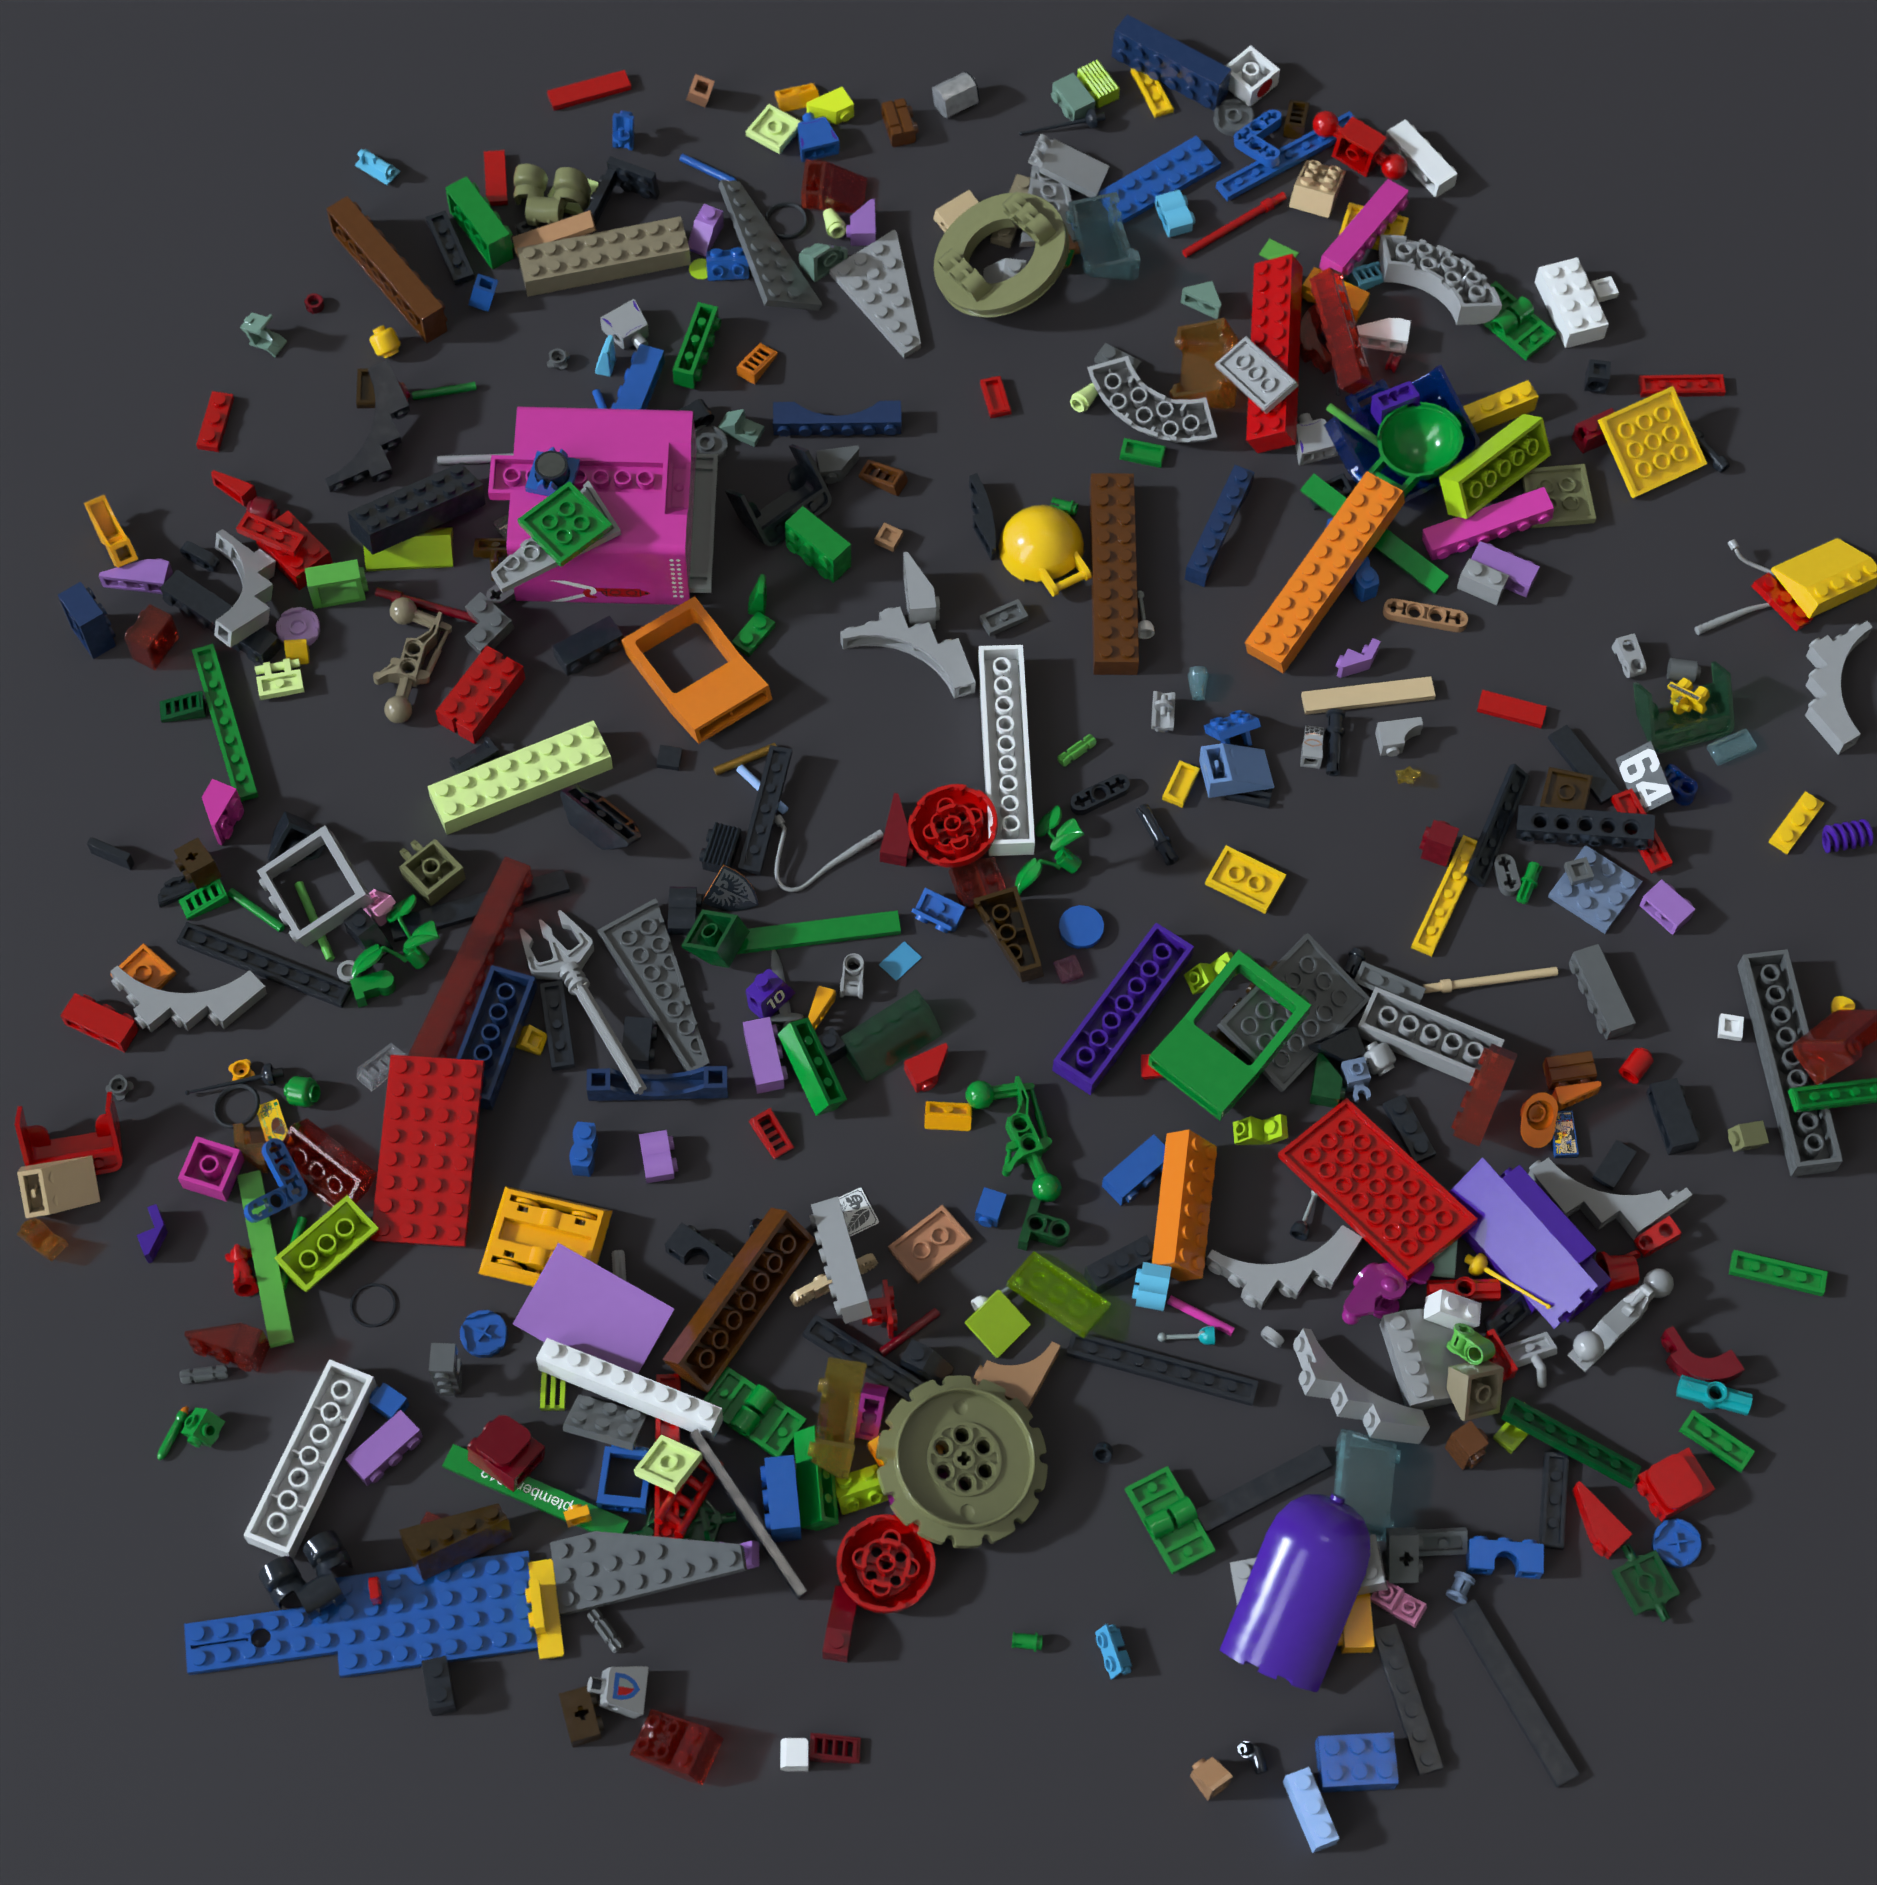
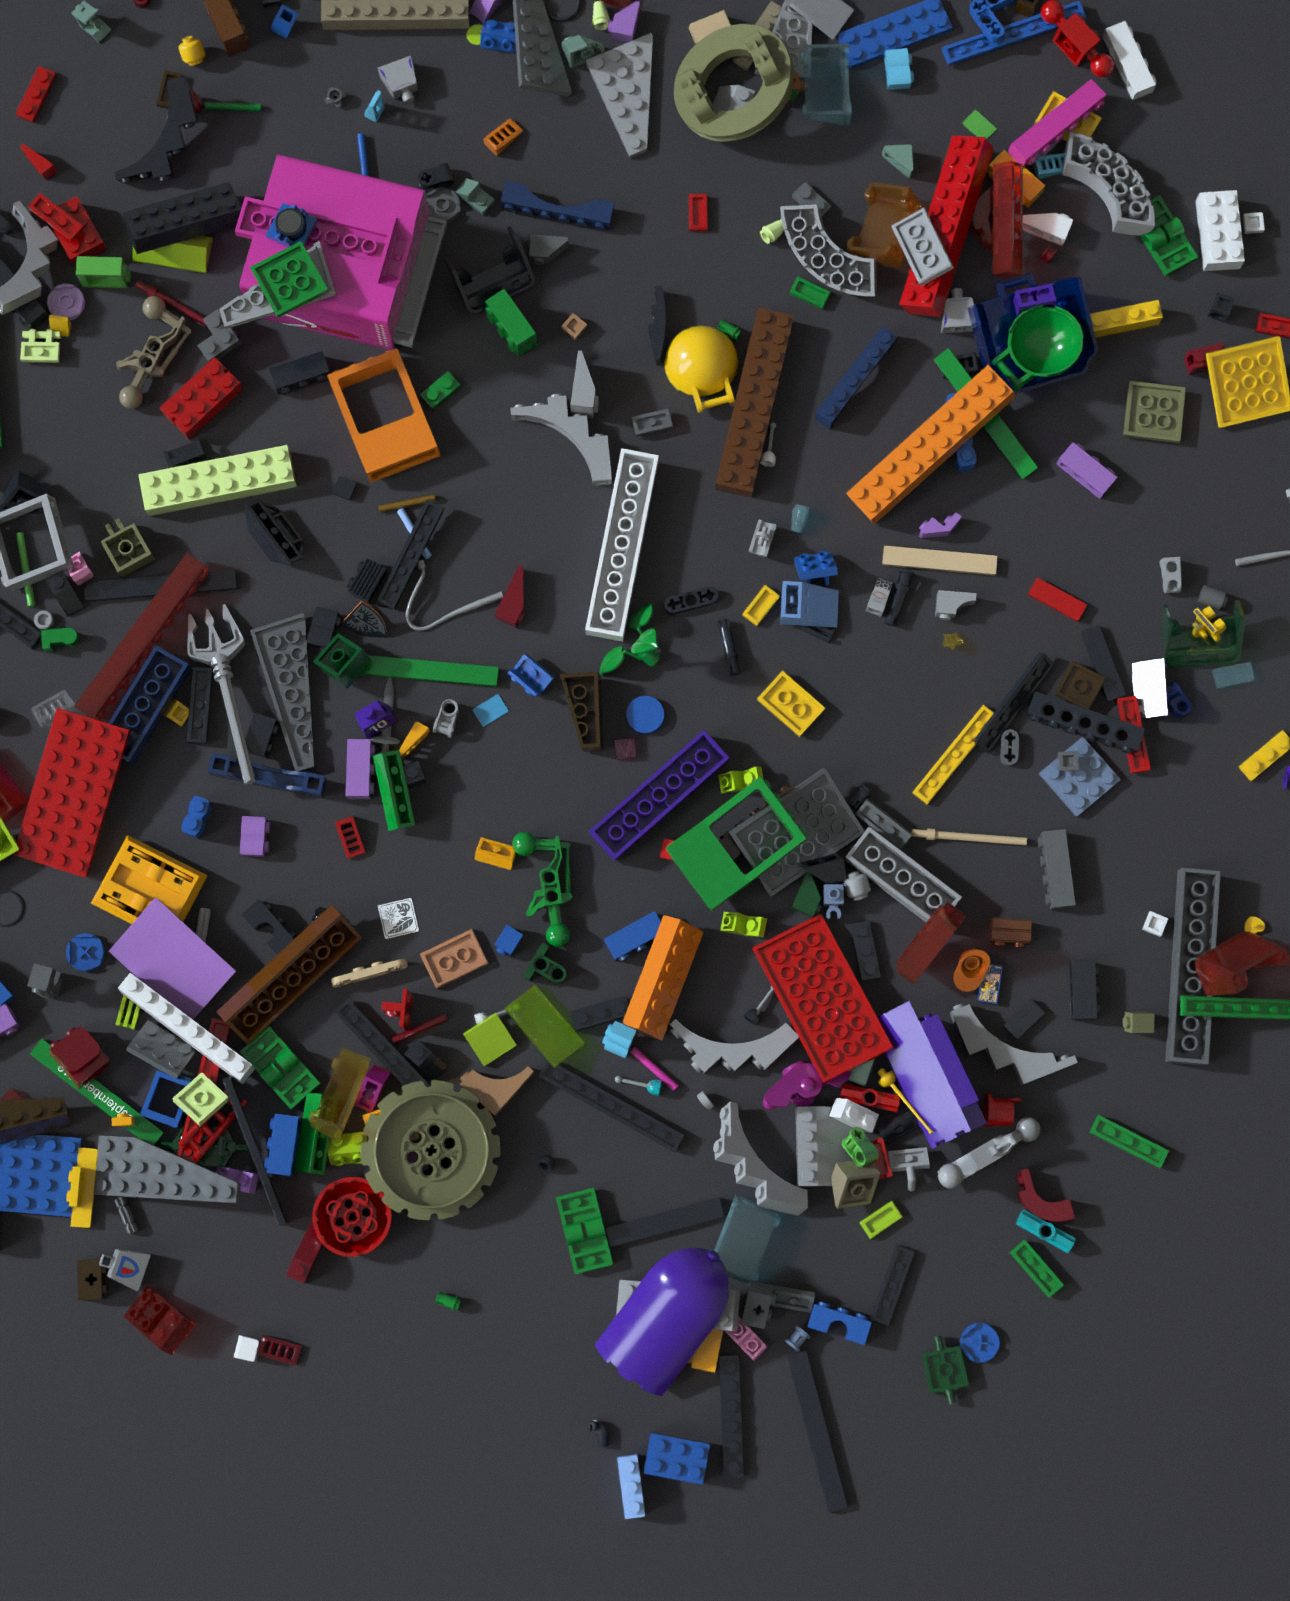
camera: 15 degrees right, 15 degrees up
(263, 508) = (57, 189): dark red head -> none
(412, 950) = (98, 616): green plant -> none
(466, 459) = (241, 176): light grey bar -> none
(491, 548) = (235, 263): dark brown plate -> none
(640, 378) = (396, 139): blue brick -> none
(696, 344) = (453, 111): green brick -> none
(758, 596) = (451, 360): green slope -> none
(841, 1260) = (375, 962): light grey brick -> none
(891, 1035) = (465, 776): clear green slope -> none
(895, 483) = (592, 277): reddish brown slope -> none
(926, 1068) = (488, 810): red slope -> none
(946, 806) = (559, 584): red brick -> none
(976, 880) = (570, 656): clear red slope -> none
(1076, 750) = (682, 556): bright green axle -> none
(1109, 1640) = (512, 1333): dark azure hinge -> none
(1210, 1777) = (560, 1442): medium nougat slope -> none
(1265, 206) = (981, 77): red bar -> none
(1317, 188) = (1029, 70): tan slope -> none
(1352, 424) = (993, 308): bright green bar -> none
(1425, 611) = (1009, 495): medium nougat beam -> none
(1438, 842) = (958, 709): dark red brick -> none
(1467, 1445) = (835, 1229): reddish brown brick -> none
(1482, 581) = (1065, 479): light grey brick -> none
(1488, 524) = (1084, 427): dark pink brick -> none
(1495, 466) = (1104, 377): lime brick -> none
(1529, 882) = (1025, 759): green axle -> none
(1571, 1442) = (918, 1244): dark green plate -> none
(1575, 1093) = (1001, 953): orange slope -> none
(1601, 1525) = (923, 1317): red slope -> none
(1636, 1065) = (1067, 939): red brick -> none
(1658, 1237) = (1039, 1089): red leg -> none
(1667, 906) = (1134, 807): medium lavender brick -> none
(1674, 1484) = (990, 1297): red brick -> none

